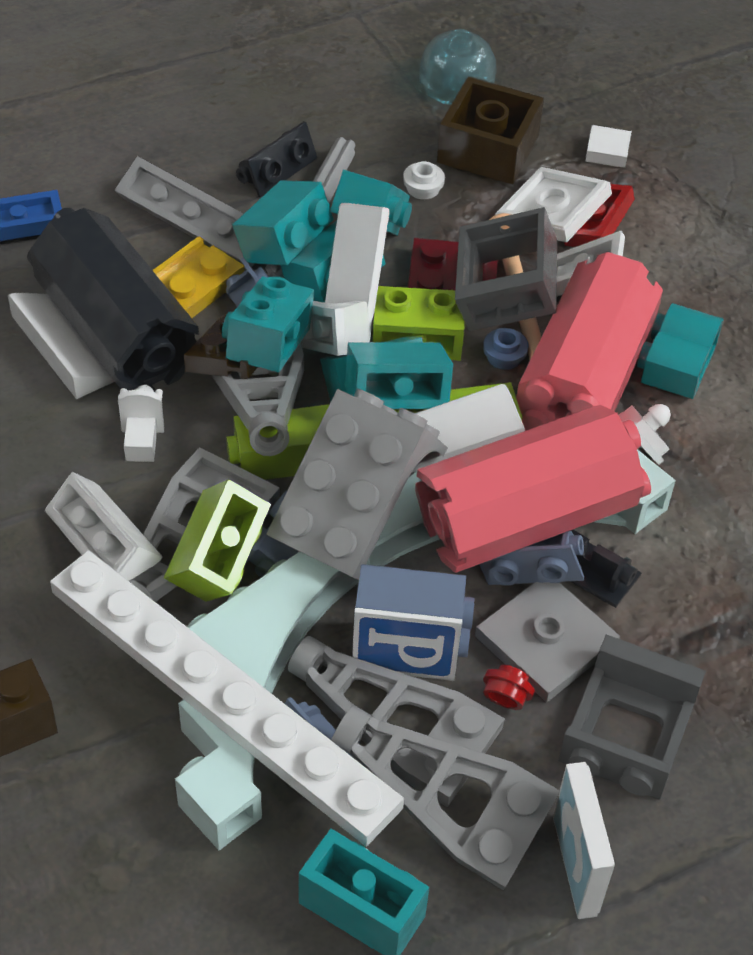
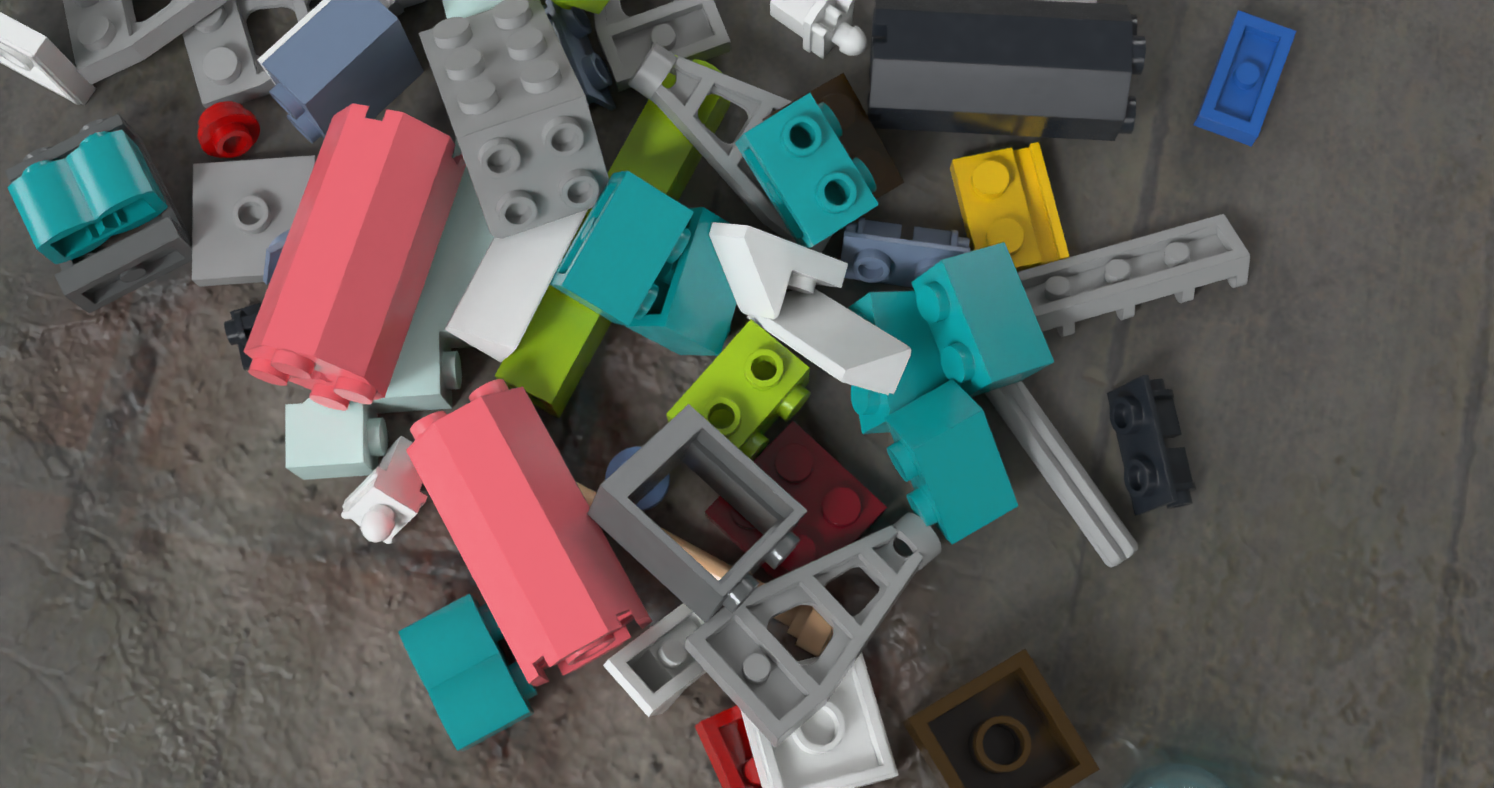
camera: 135 degrees right, 25 degrees up
(423, 180) = (975, 622): white plate -> none
(557, 192) = (762, 673): none -> light grey plate
(634, 710) = (87, 196): none -> teal brick

